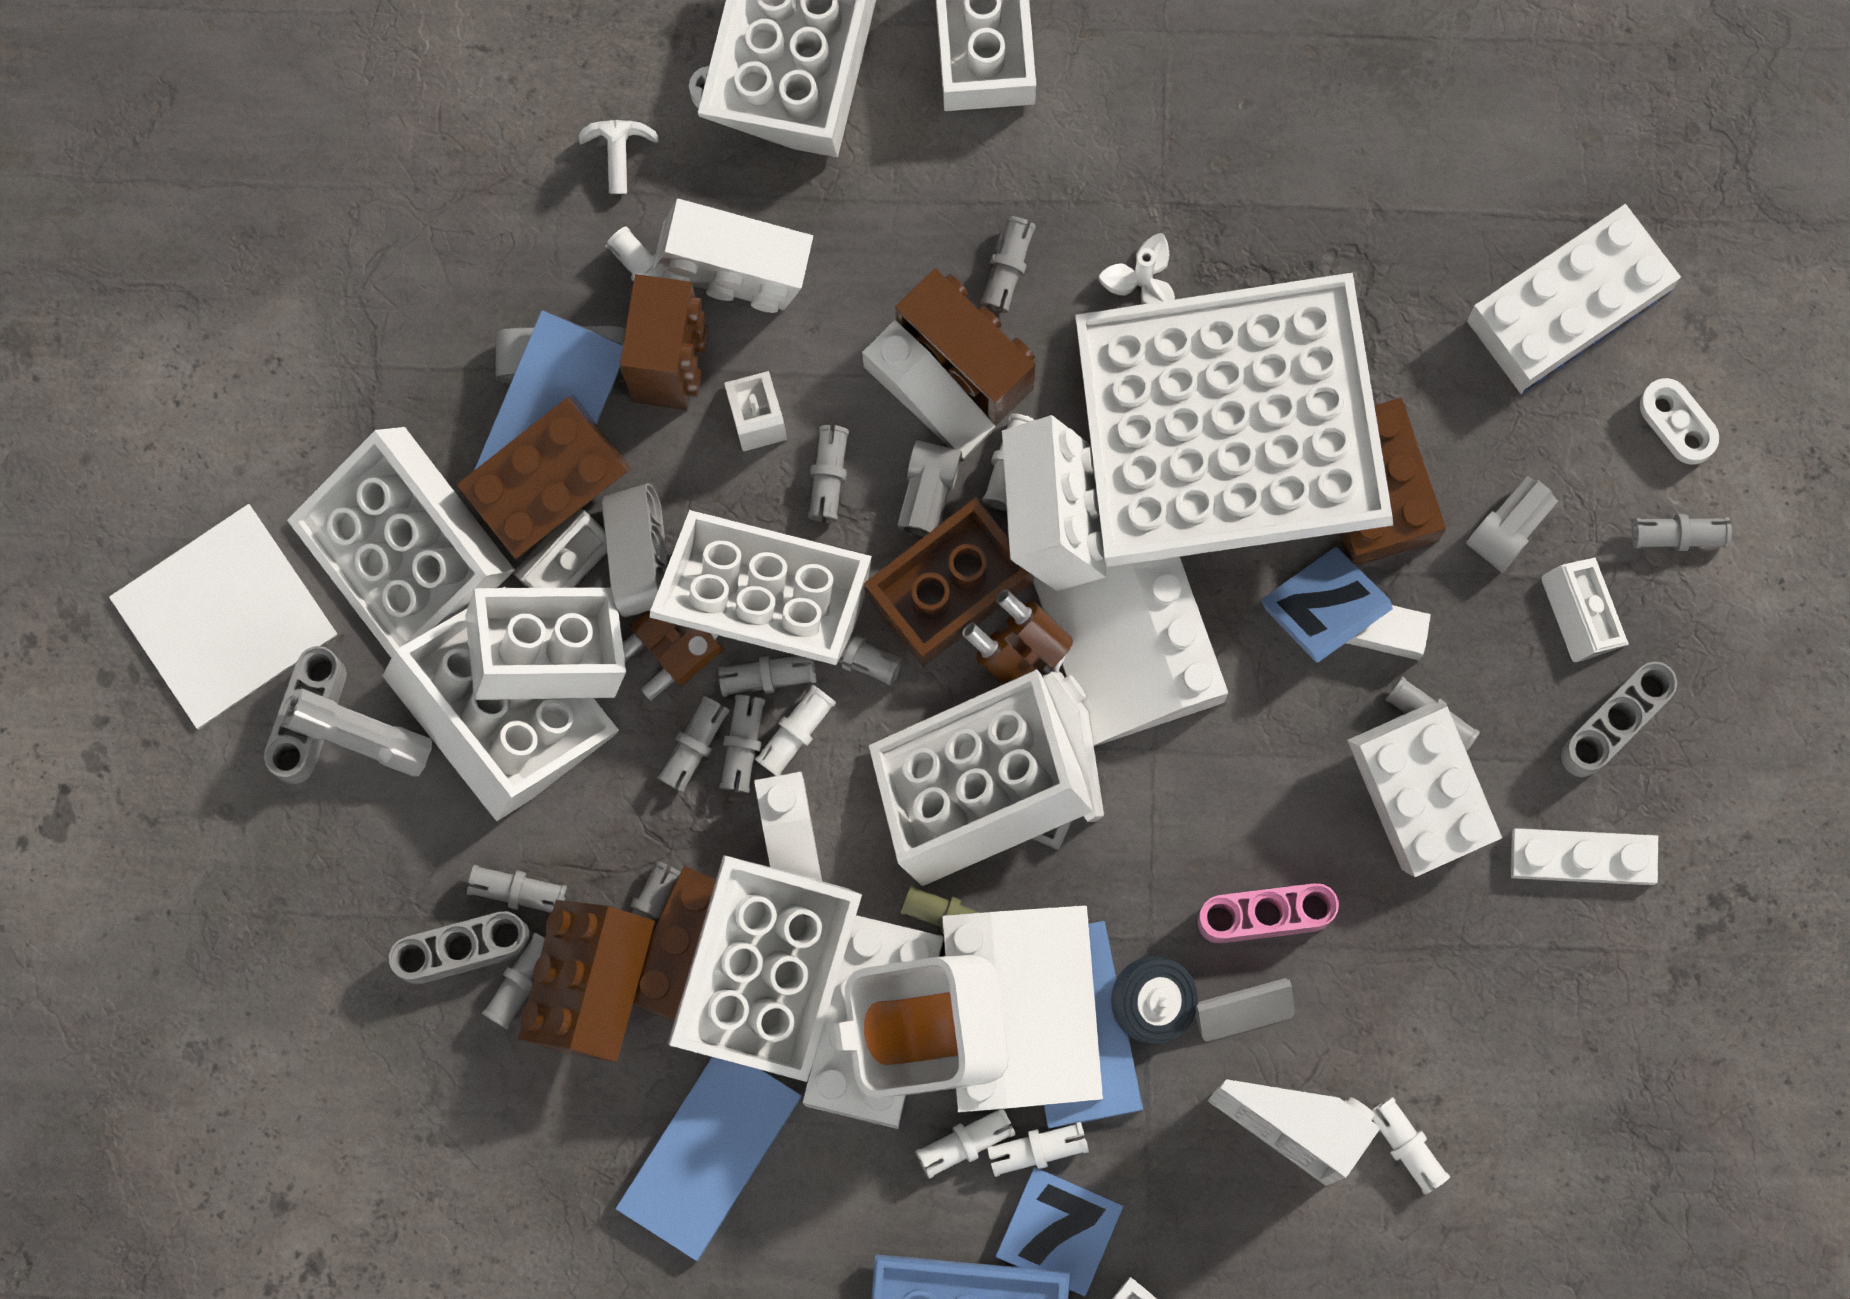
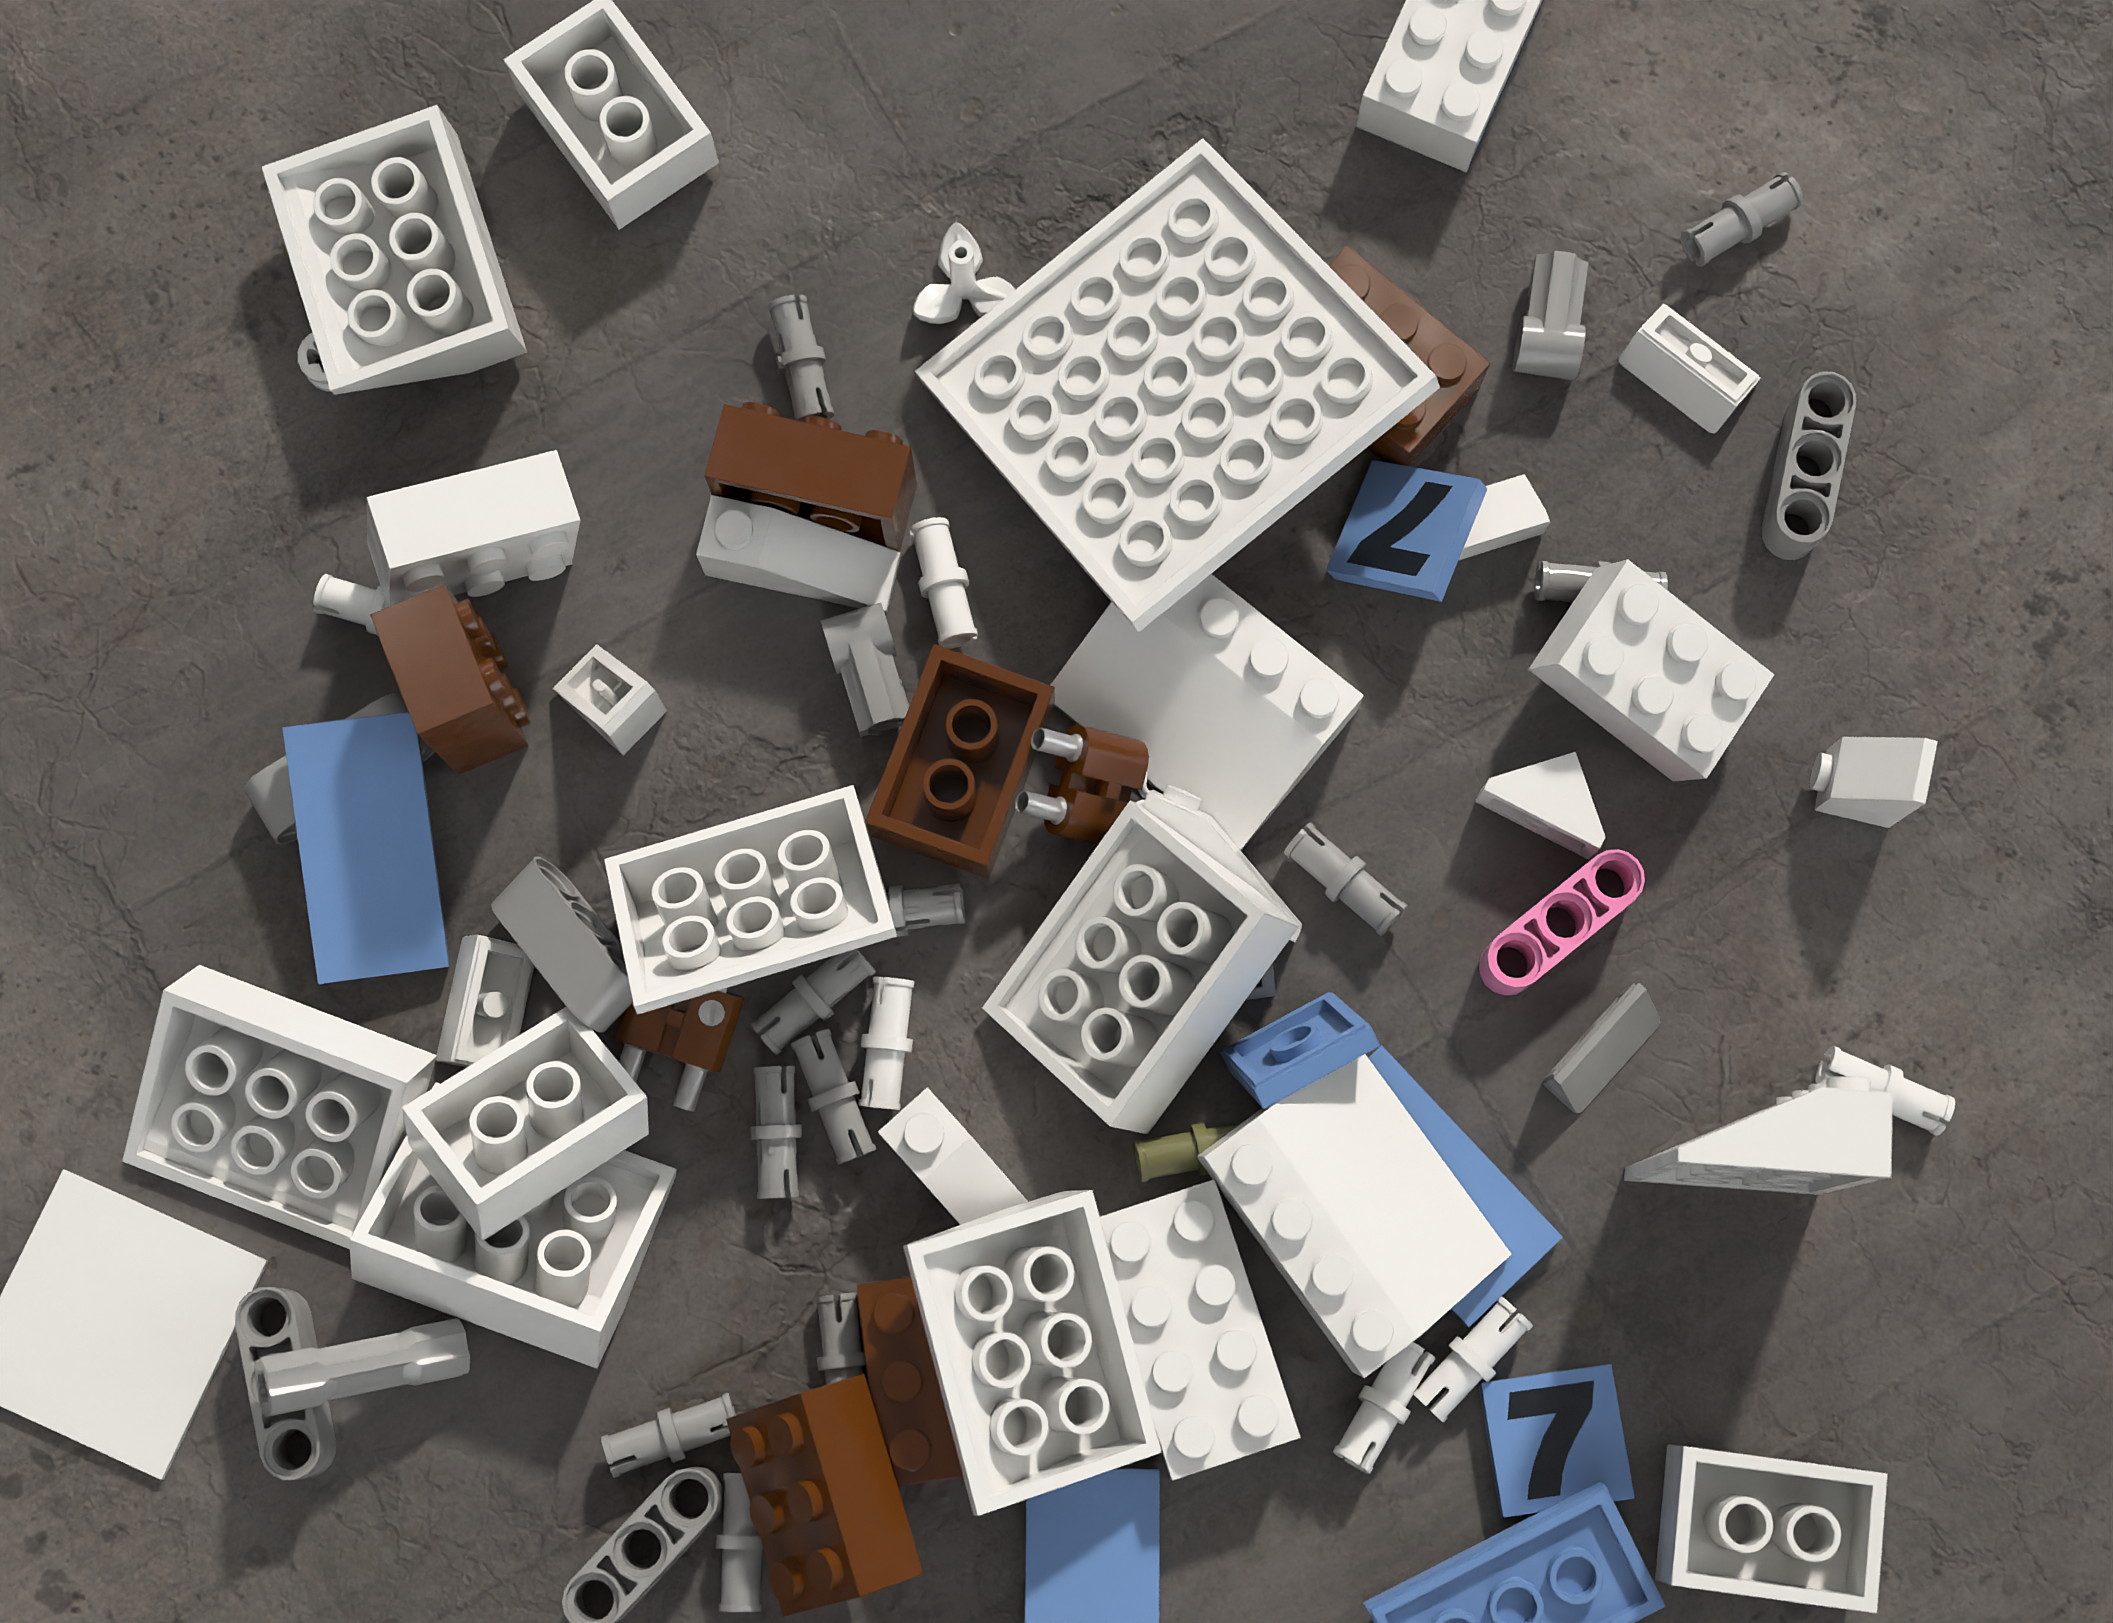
camera: 35 degrees left, 0 degrees up
(544, 476) = (404, 923): reddish brown brick -> none
(616, 134) = (248, 472): white plant -> none
(828, 473) = (740, 721): light grey pin -> none
(924, 1026) = (1273, 1305): white piece -> none
(1047, 889) = (1299, 1049): none -> medium blue tile
(1052, 504) = (1029, 597): white brick -> none
(1147, 803) = (1345, 879): none -> light grey pin
(1154, 1000) = (1497, 1102): black wheel -> none
(1308, 831) = (1549, 801): none -> white slope
(1524, 942) = (1873, 778): none -> white slope
(1584, 856) = (1865, 643): white plate -> none
(1682, 420) = (1662, 94): white plate -> none

